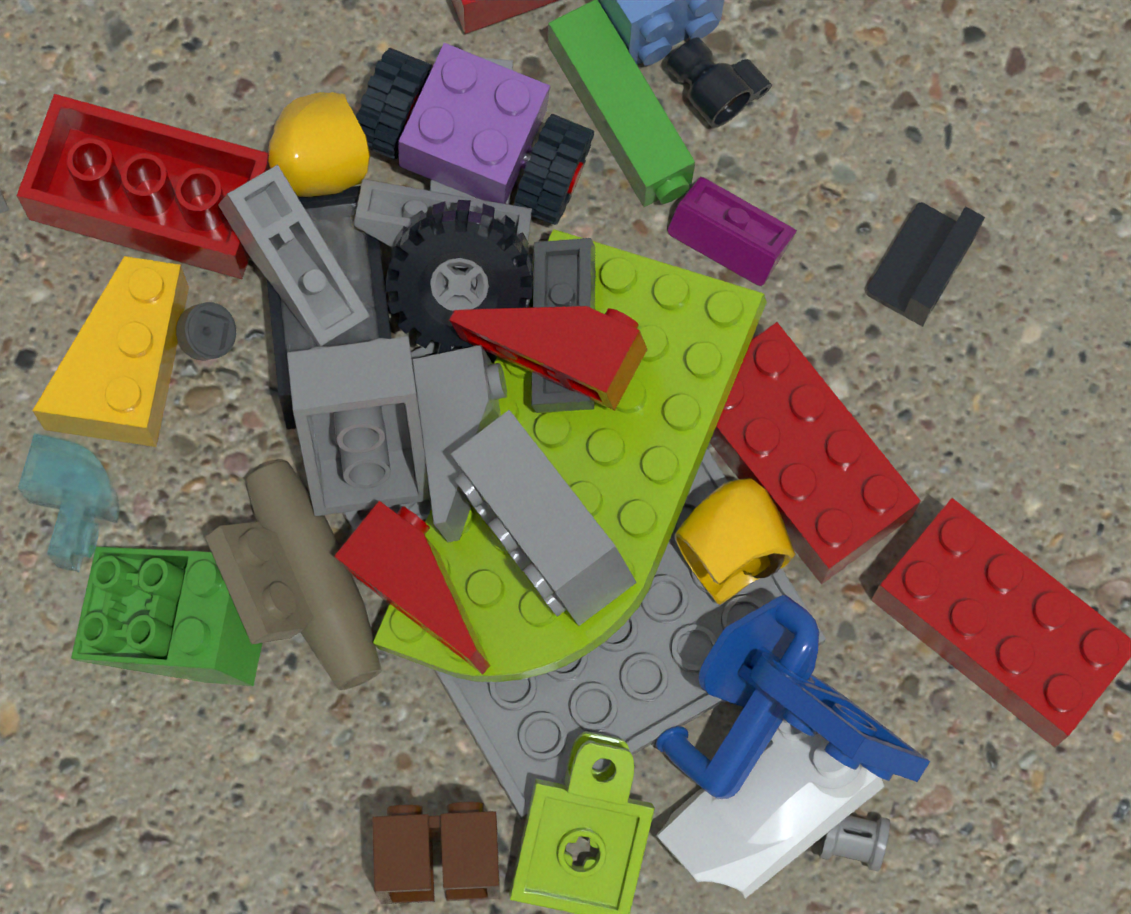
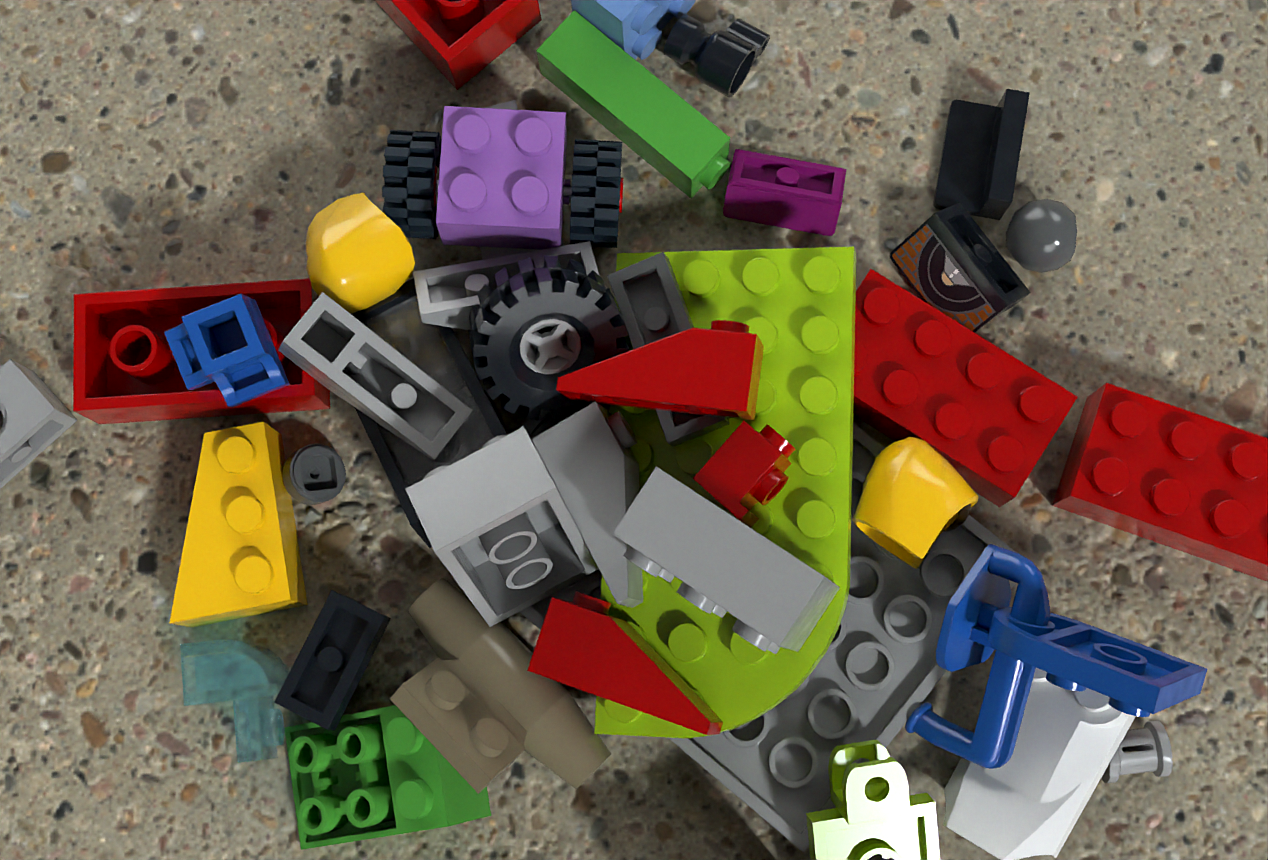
camera: 10 degrees left, 5 degrees up
(164, 495) = (332, 660): none -> black panel
(176, 186) = (228, 347): none -> blue brick
(591, 450) = (747, 470): none -> red brick
(864, 355) = (958, 269): none -> panel
(950, 351) = (1042, 235): none -> dark grey piece

